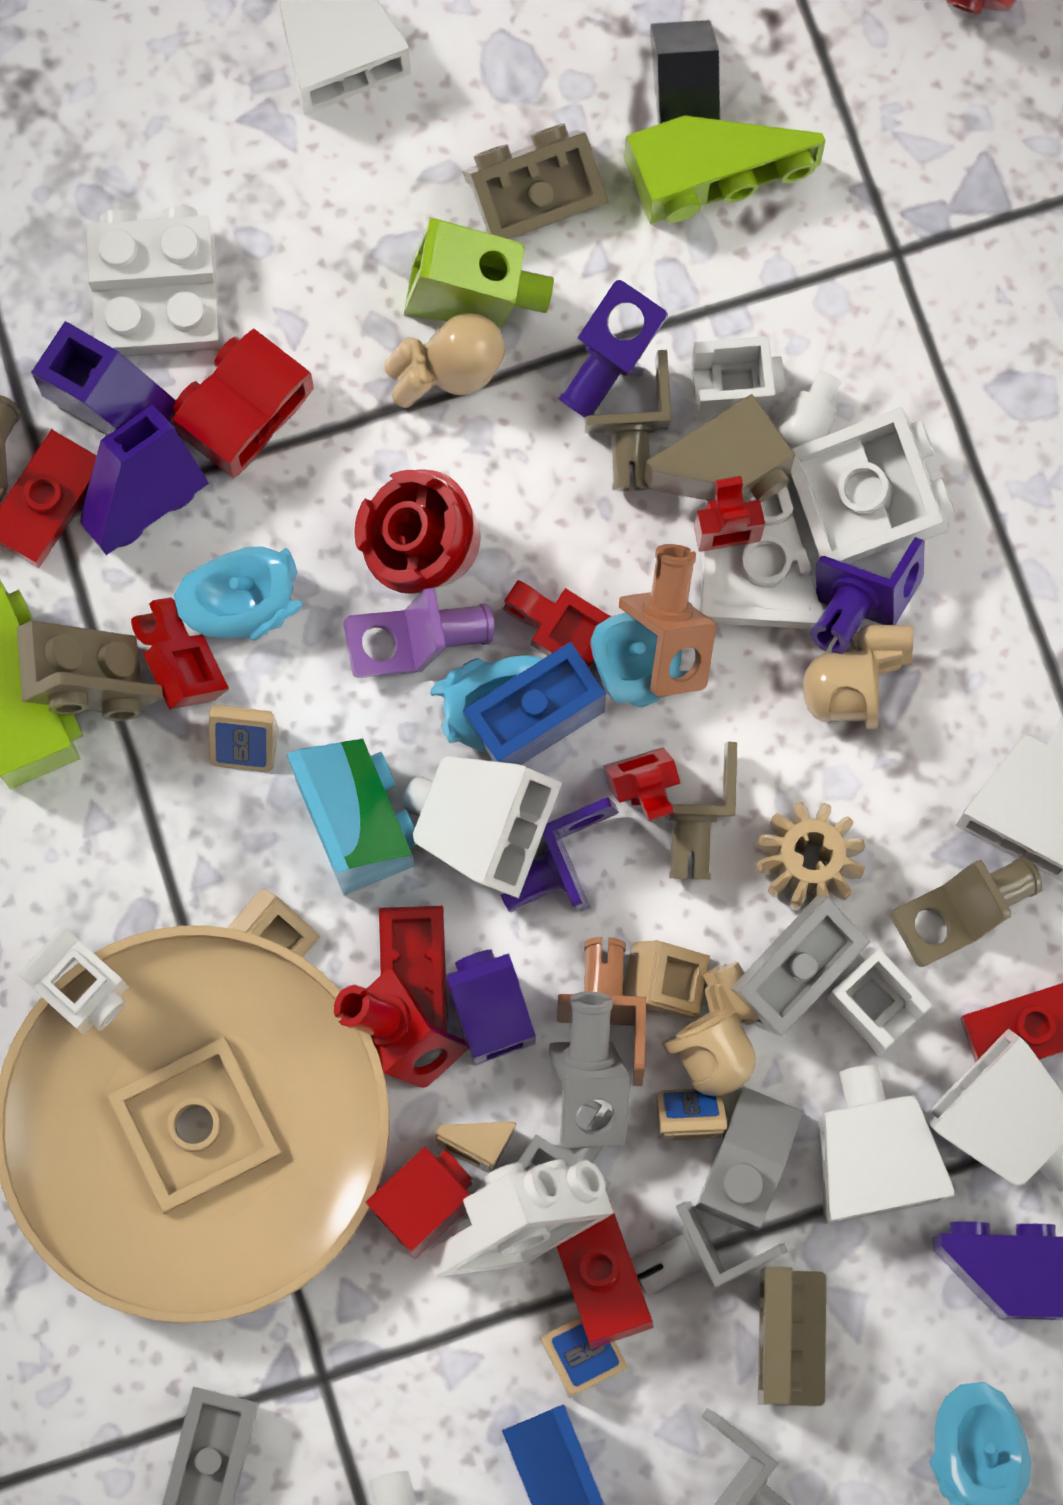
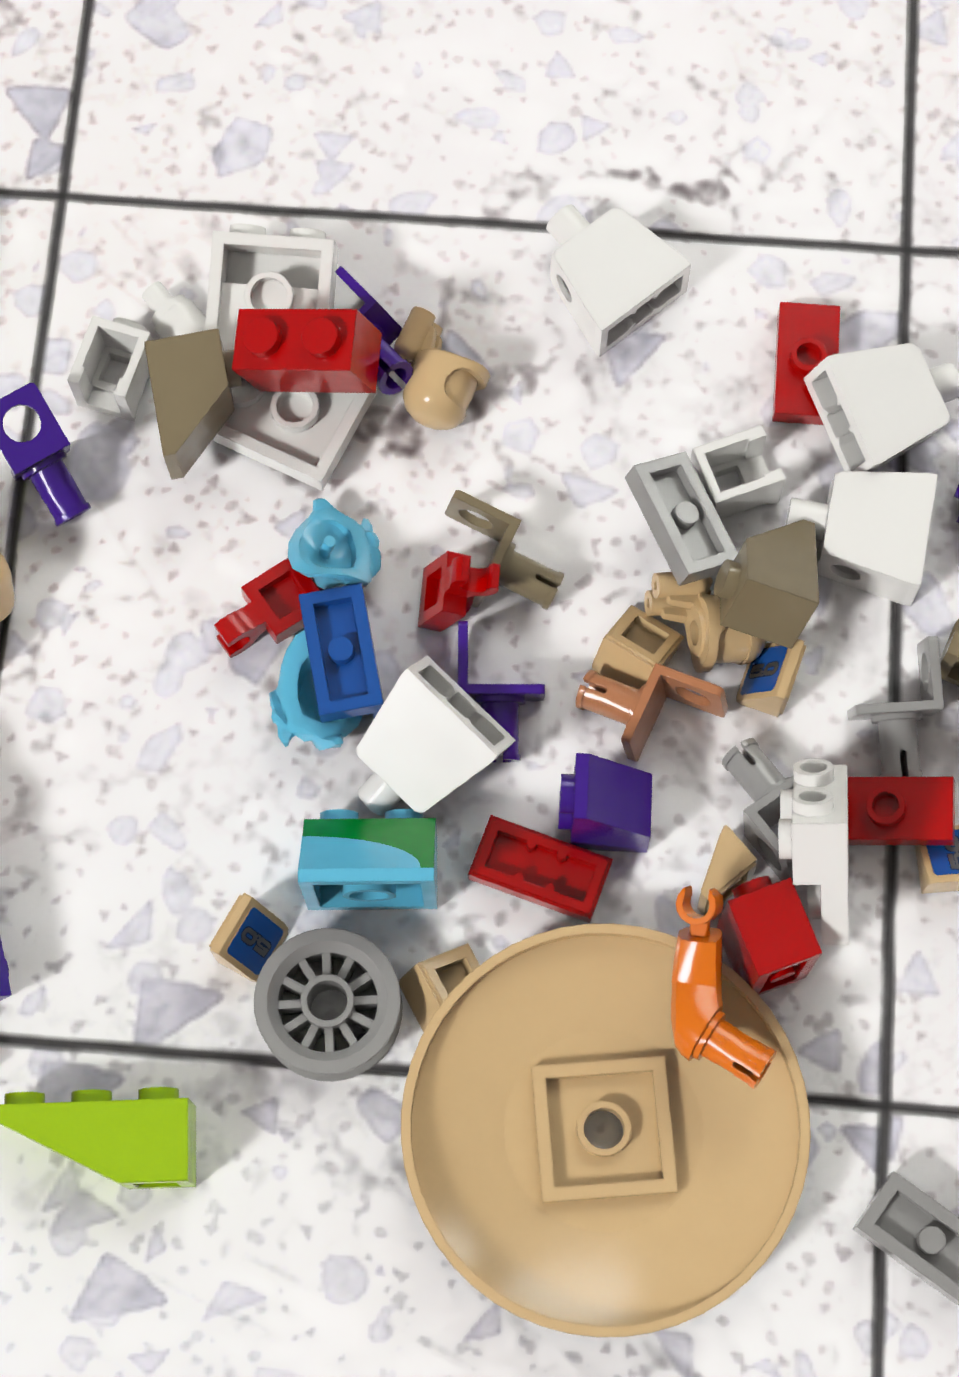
camera: 65 degrees left, 5 degrees down
(82, 671) = (118, 1059): dark tan bracket -> none
(98, 1004) = (404, 1191): white window -> none
(165, 800) = (276, 977): none -> light grey wheel
(177, 660) = (147, 967): red plate -> none
(239, 593) = (107, 884): medium azure hat -> none
(334, 1158) = (697, 998): none -> orange arm
(397, 1029) = (592, 896): red bracket -> none
(417, 531) = (128, 692): red cone -> none
(419, 634) = (222, 737): medium lavender bracket -> none
(591, 1071) = (705, 738): light grey bracket -> none
(631, 431) = (119, 474): dark tan bracket -> none
(674, 621) = (307, 505): nougat bracket -> none
(728, 518) = (247, 411): red plate -> none
(750, 1160) = (849, 647): light grey slope -> none
(768, 1074) = (771, 584): none -> dark tan slope
(810, 545) = (307, 350): none -> red brick
(831, 849) = (576, 460): tan gear -> none
(969, 905) = (681, 369): dark tan bracket -> none

